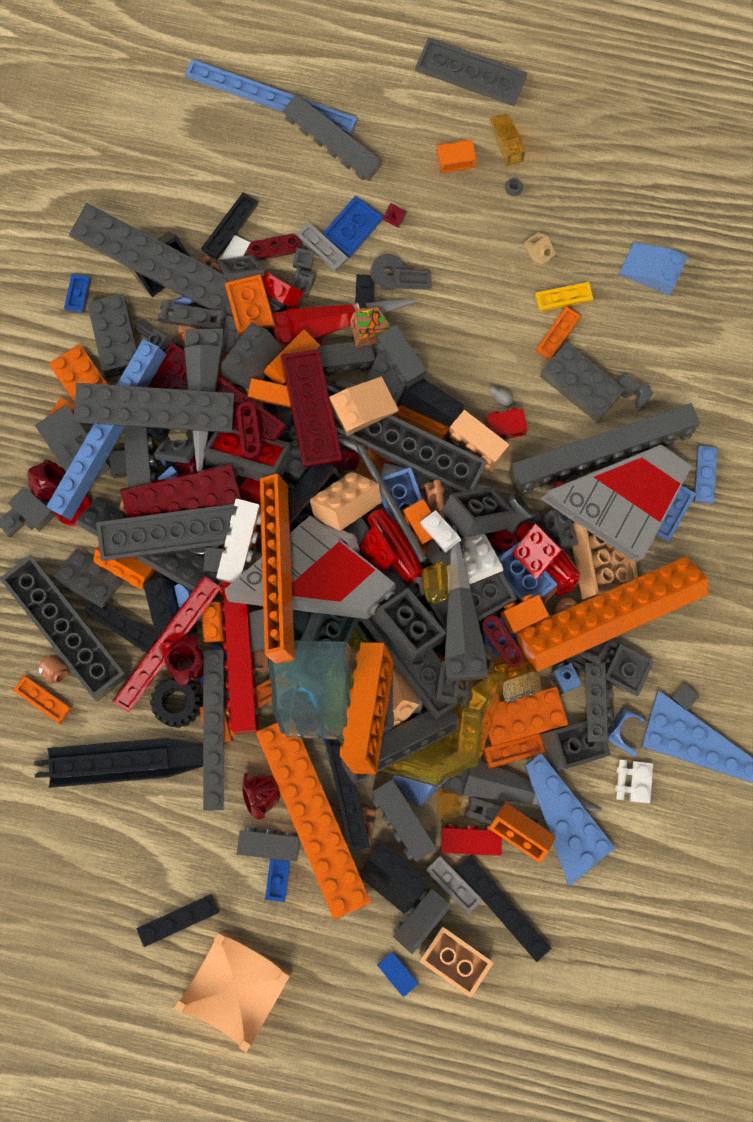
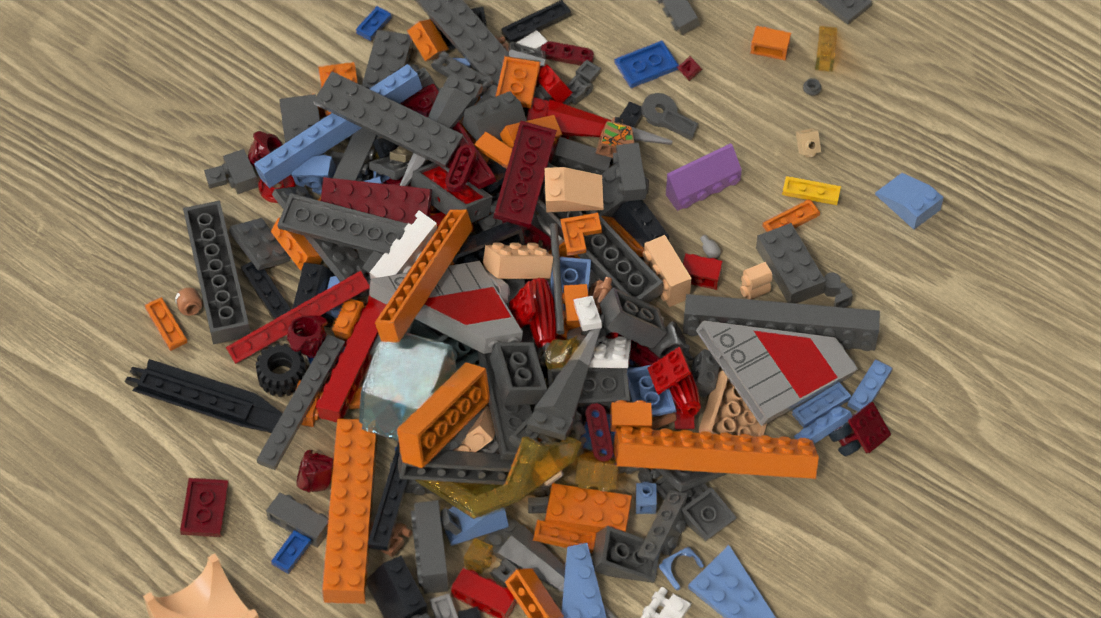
camera: 25 degrees right, 20 degrees down
(107, 483) = (313, 171): none -> medium blue slope
(140, 292) = (427, 39): none -> orange piece
(176, 873) = (204, 507): none -> dark red plate
(177, 920) = (183, 547): black plate -> none
(322, 246) = (610, 68): light grey plate -> none
(383, 445) = (576, 228): none -> orange plate
(410, 790) = (450, 521): none -> dark grey plate
(465, 328) = (703, 177): none -> medium lavender slope
(562, 416) = (756, 281): none -> light nougat brick
(685, 534) = (825, 424): none -> medium blue plate
(685, 697) = (752, 562): dark grey tile -> none
(727, 523) = (868, 431): none -> dark red plate

